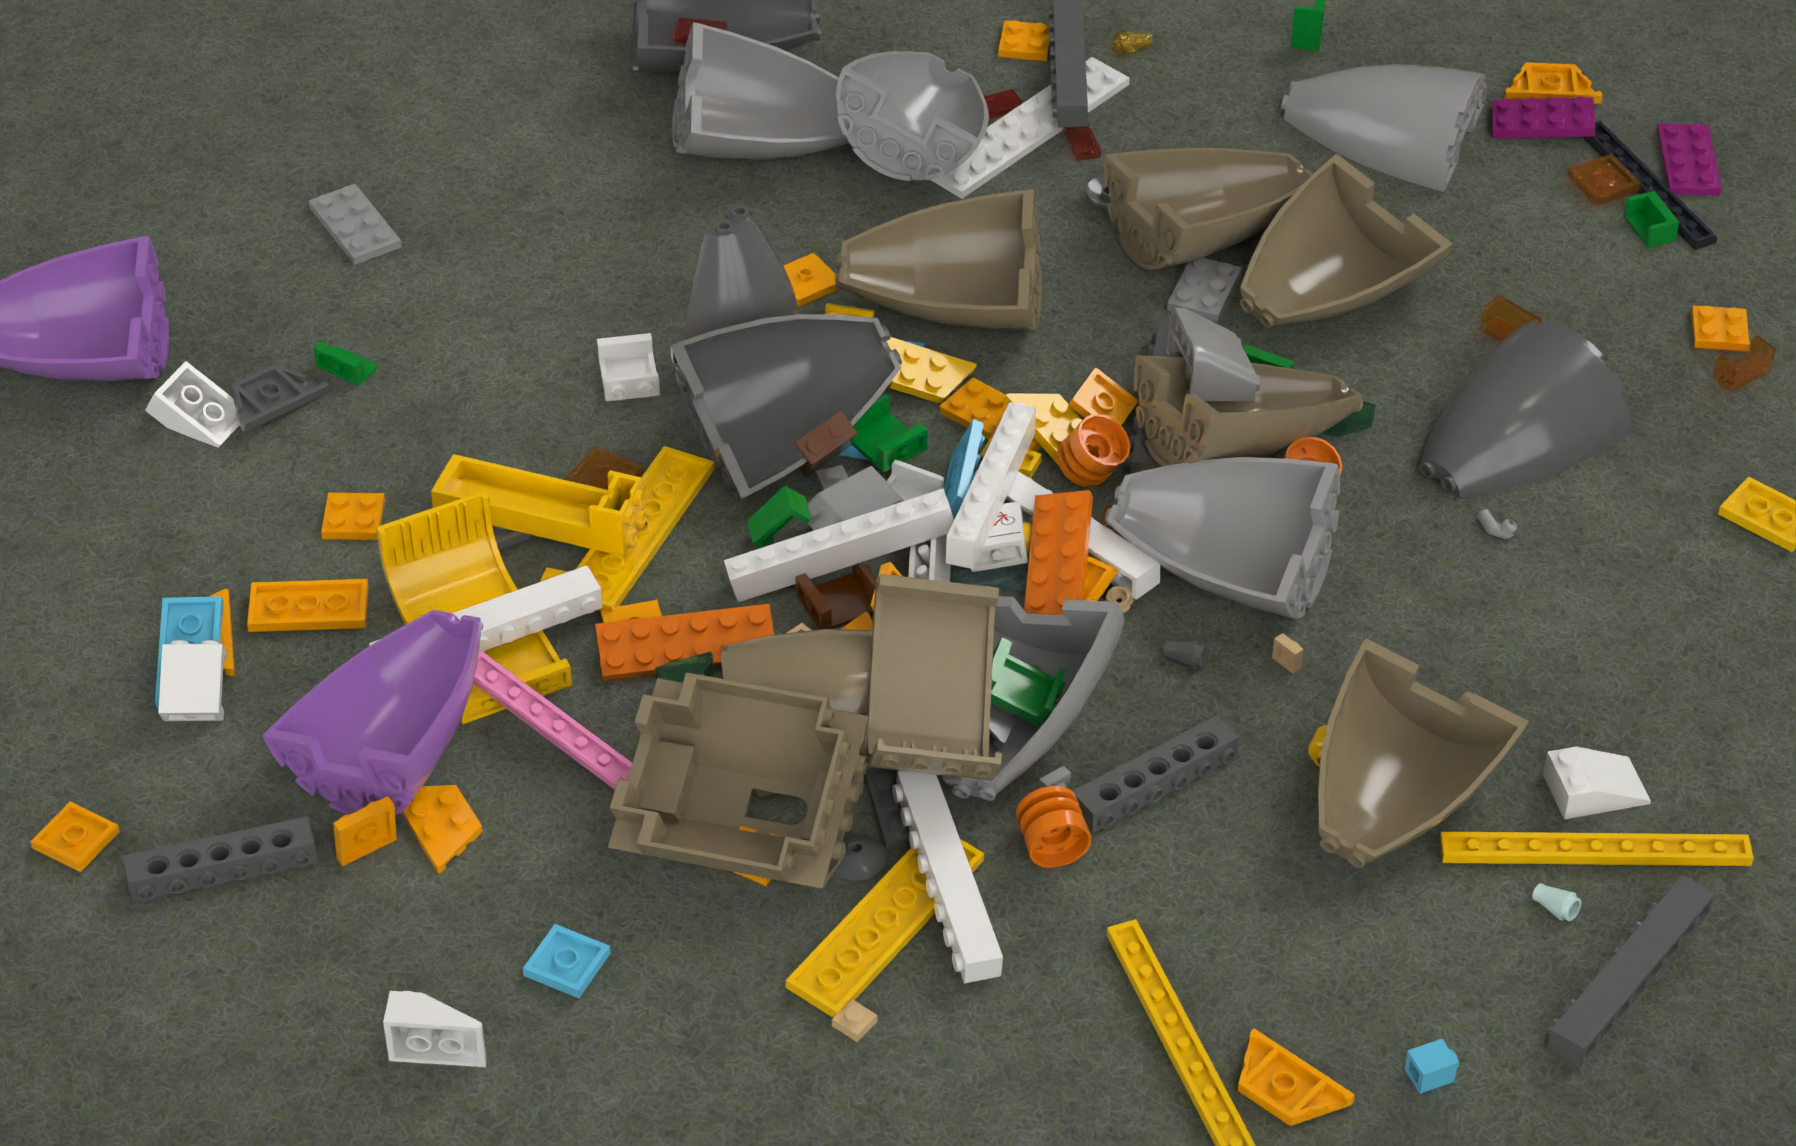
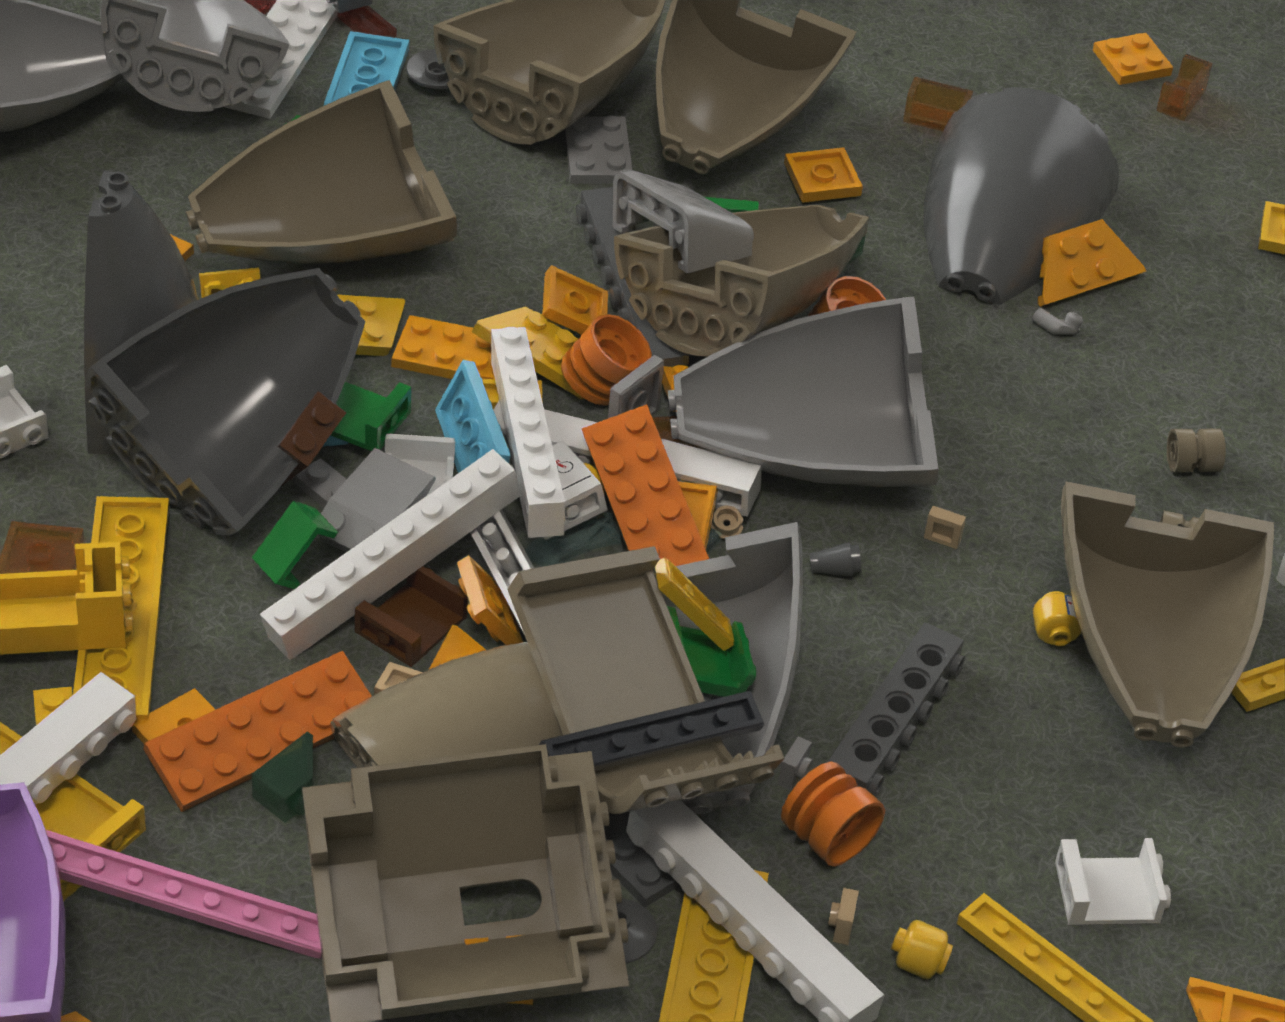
camera: 30 degrees left, 0 degrees up
(938, 723) = (662, 731): none -> black tile
(1021, 900) = (843, 915): none -> tan plate
(1026, 643) = (694, 604): none -> yellow tile
(1059, 180) = (366, 62): none -> medium azure plate
(1063, 941) = (922, 949): none -> yellow head
(1101, 480) = (638, 388): none -> light grey plate
(1240, 949) = (1112, 887): none -> white panel
(1376, 355) = (823, 174): none -> light orange plate
(1537, 655) = (1200, 450): none -> dark tan wheel
(1547, 481) = (1084, 261): none -> light orange wing

